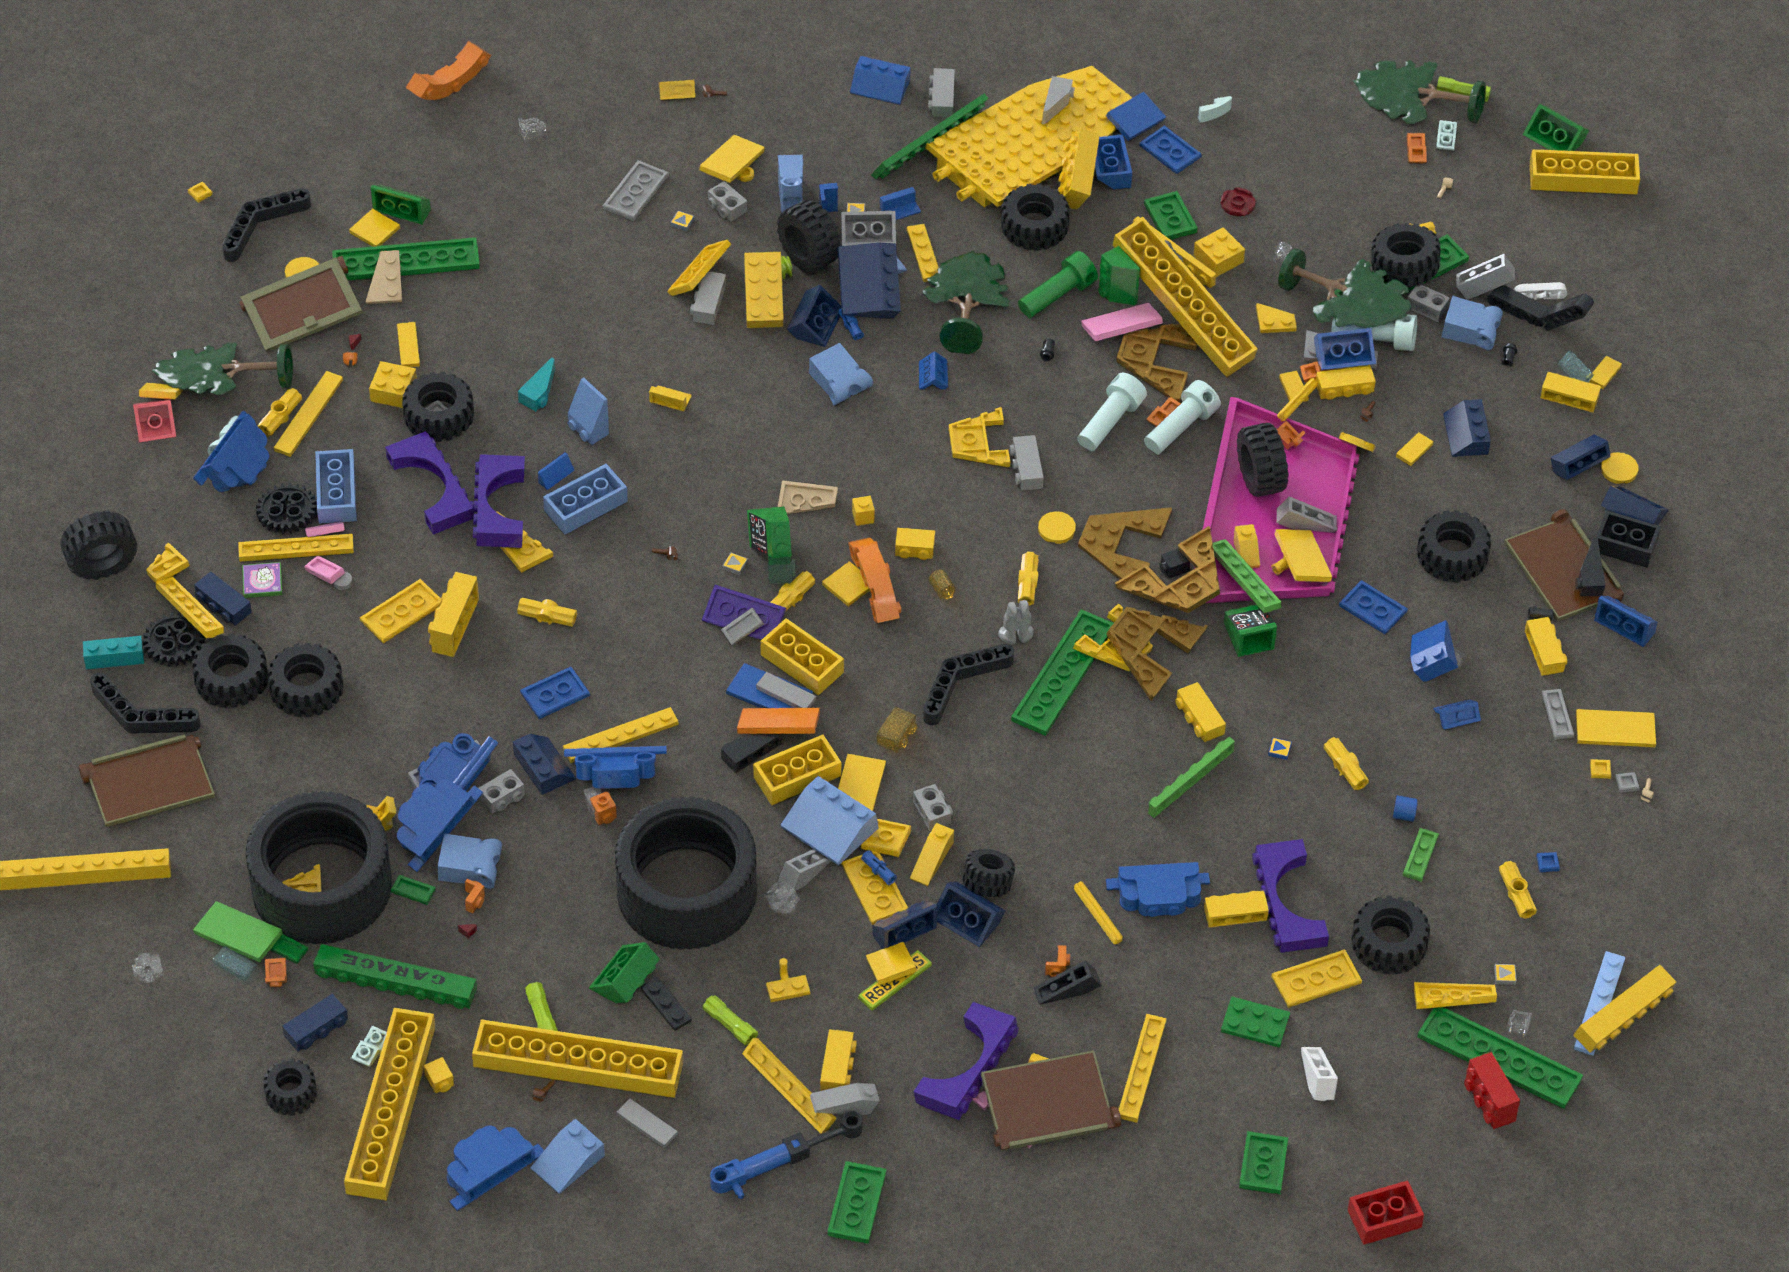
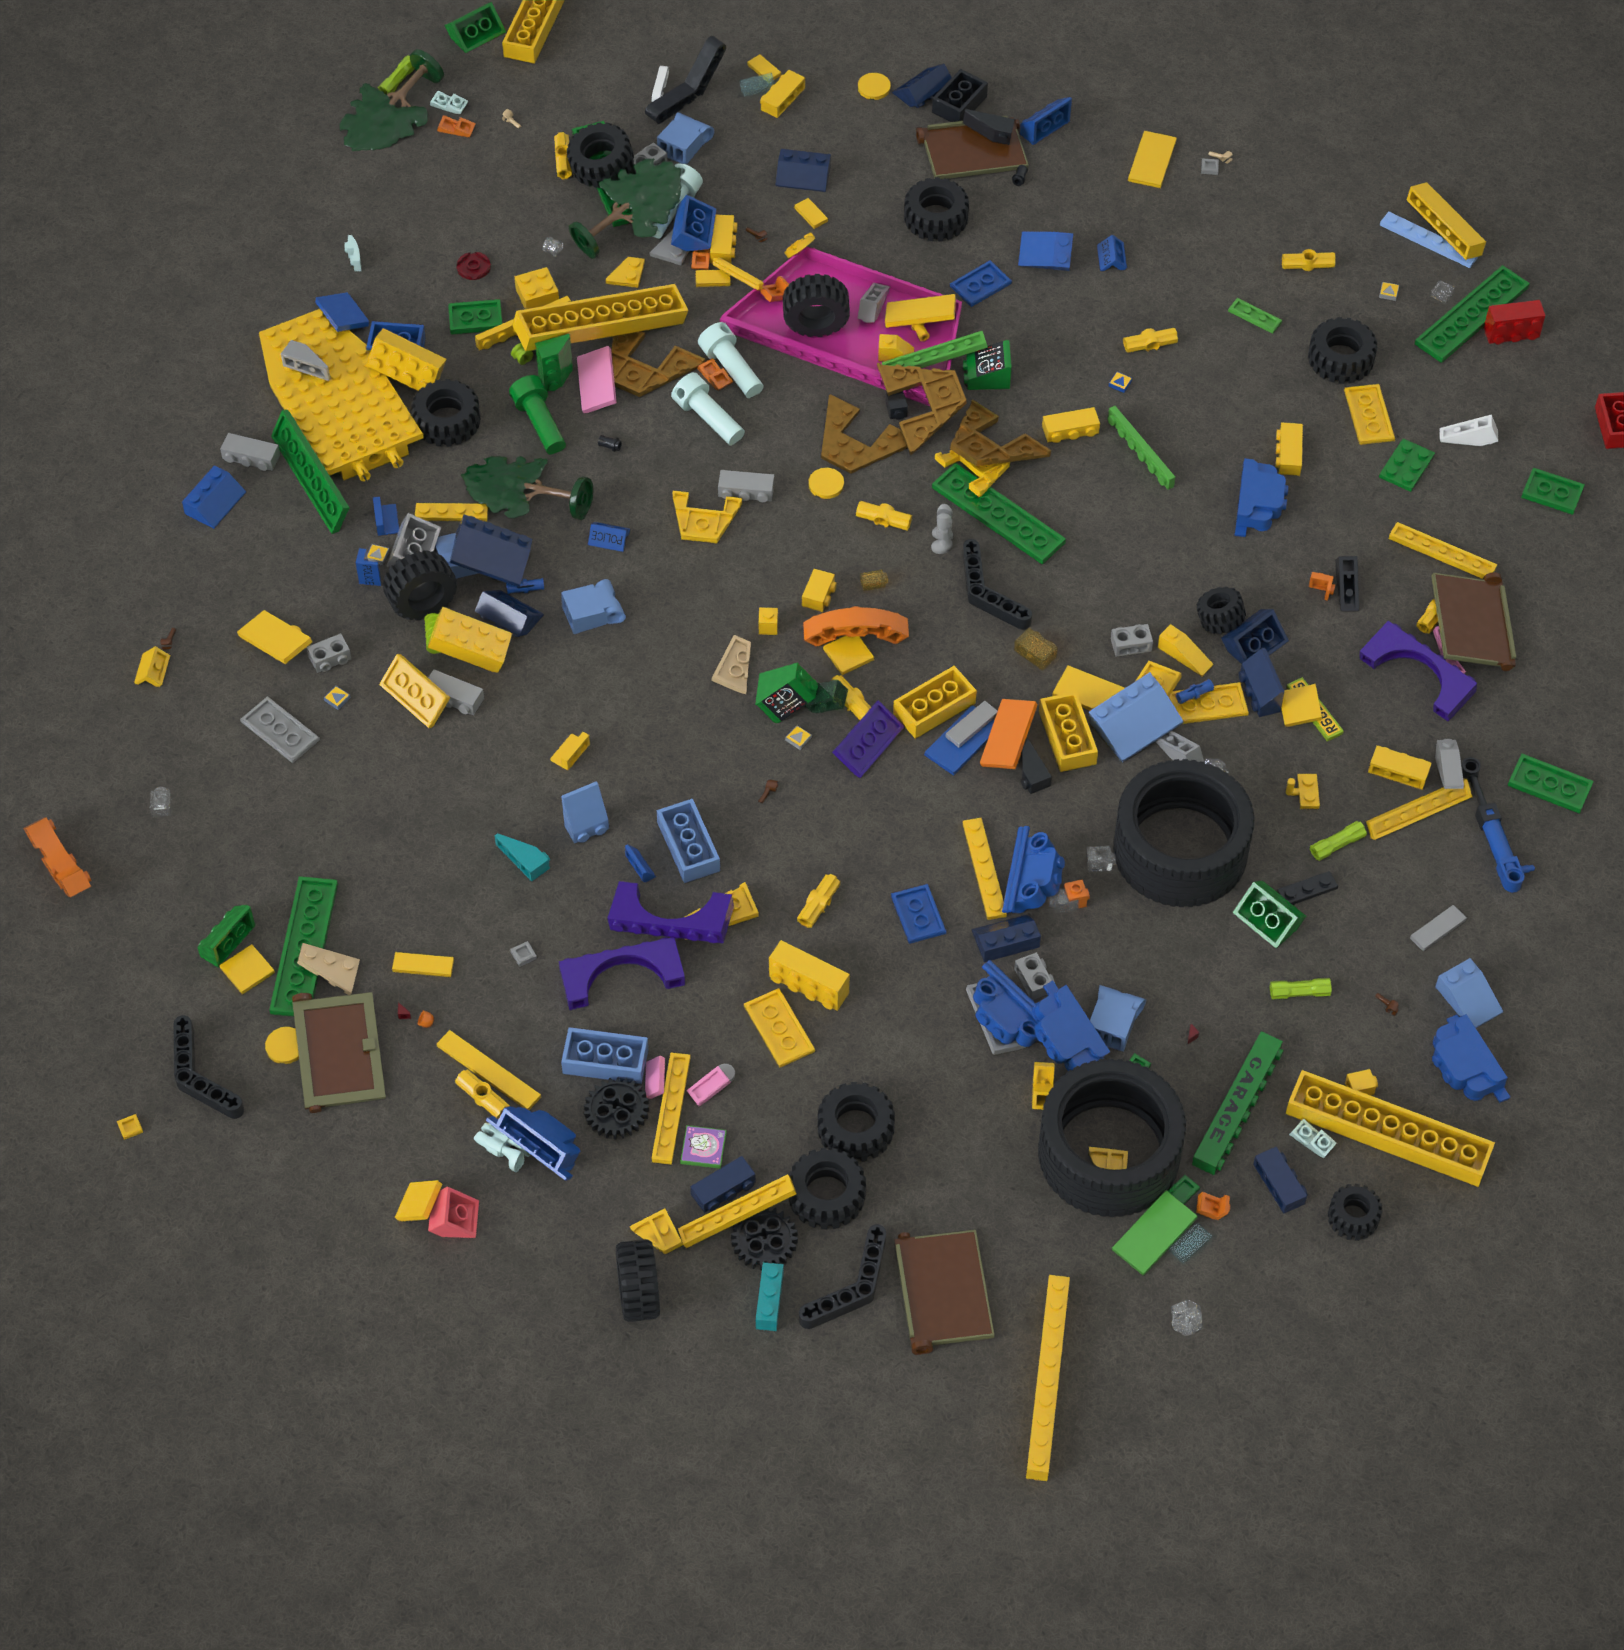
camera: 75 degrees left, 5 degrees up
(205, 370) = (395, 1159): dark green plant -> none
(390, 383) = (480, 983): yellow brick -> none
(438, 423) = (531, 967): black tyre -> none
(476, 896) = (1155, 1018): orange bracket -> none
(577, 1058) = (1364, 966): yellow brick -> none
(742, 626) = (883, 742): light grey tile -> none
(790, 180) = (333, 592): medium blue piece -> none
(1098, 913) = (1270, 547): yellow axle -> none
(1170, 149) = (389, 299): blue tile -> none
(1291, 931) = (1249, 414): dark purple arch -> none
(1405, 808) = (1209, 311): blue piece -> none
(1450, 994) = (1408, 328): yellow wing -> none
(1485, 277) = (642, 110): light grey brick -> none
(1509, 353) = (724, 124): black pin -> none
(1545, 646) = (1058, 179): yellow brick -> none
(1548, 862) = (1280, 236): blue tile -> none
(1557, 714) = (1128, 192): light grey tile -> none
(1580, 457) = (859, 104): dark blue brick -> none
(1600, 769) = (1192, 179): yellow tile -> none

